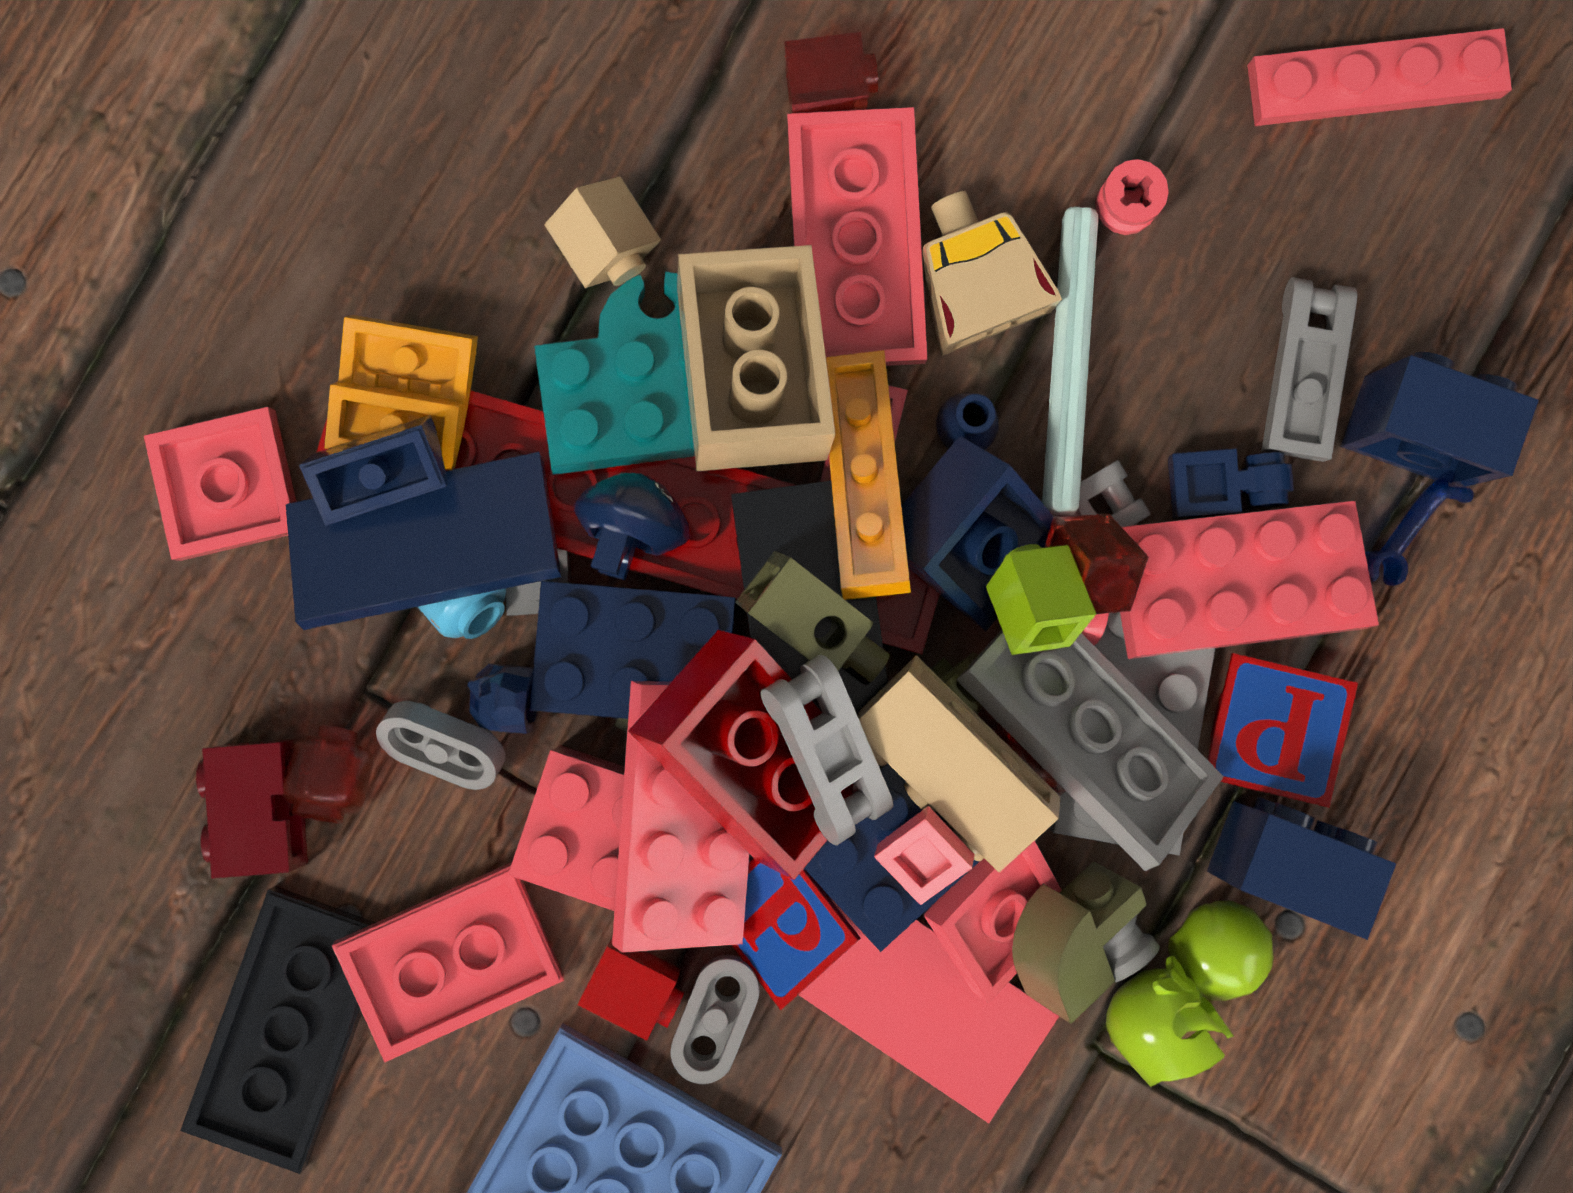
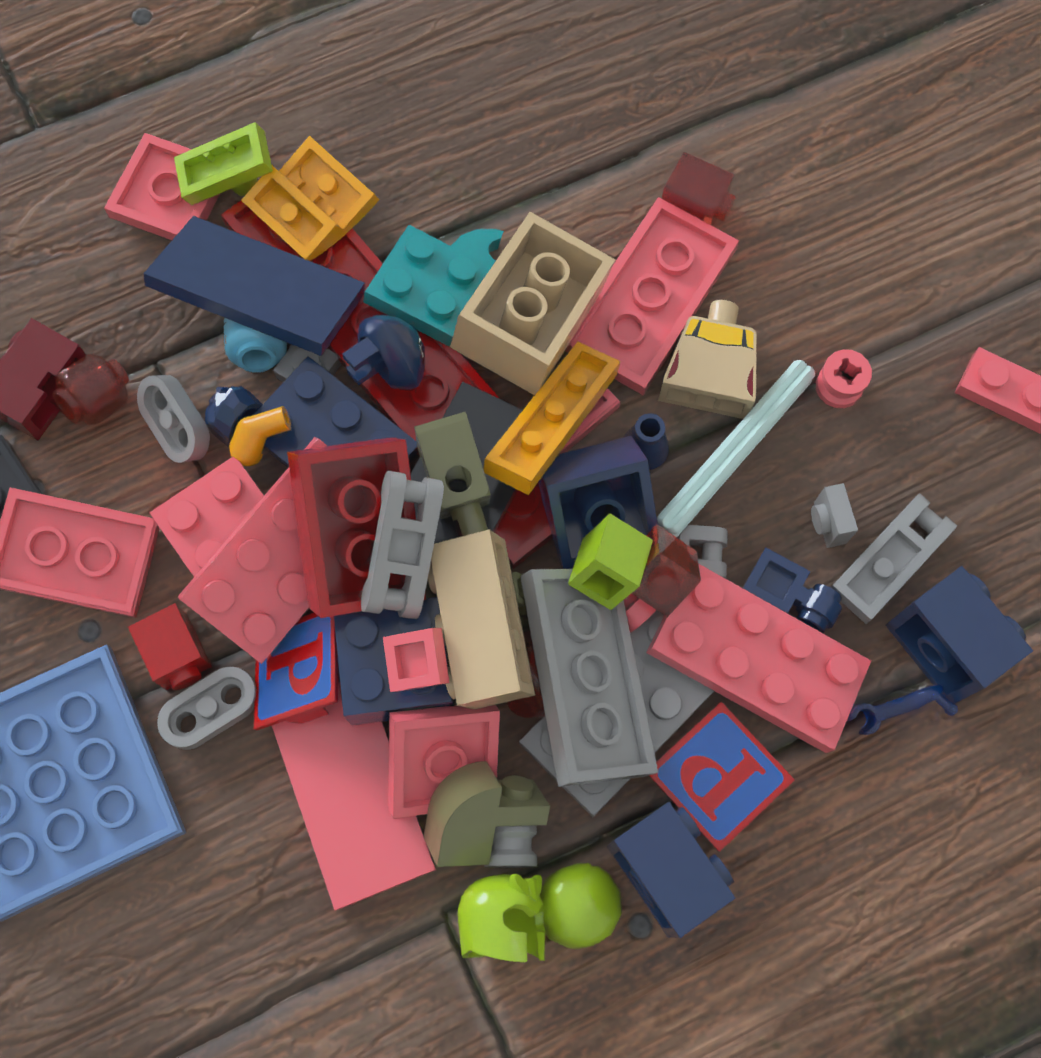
camera: 30 degrees right, 15 degrees down
(272, 420) = (224, 165): none -> lime tile
(376, 470) = (259, 225): dark blue slope -> none
(553, 714) = (253, 431): none -> light orange arm
(603, 233) = (497, 190): tan brick -> none
(1221, 368) = (834, 516): none -> light grey plate

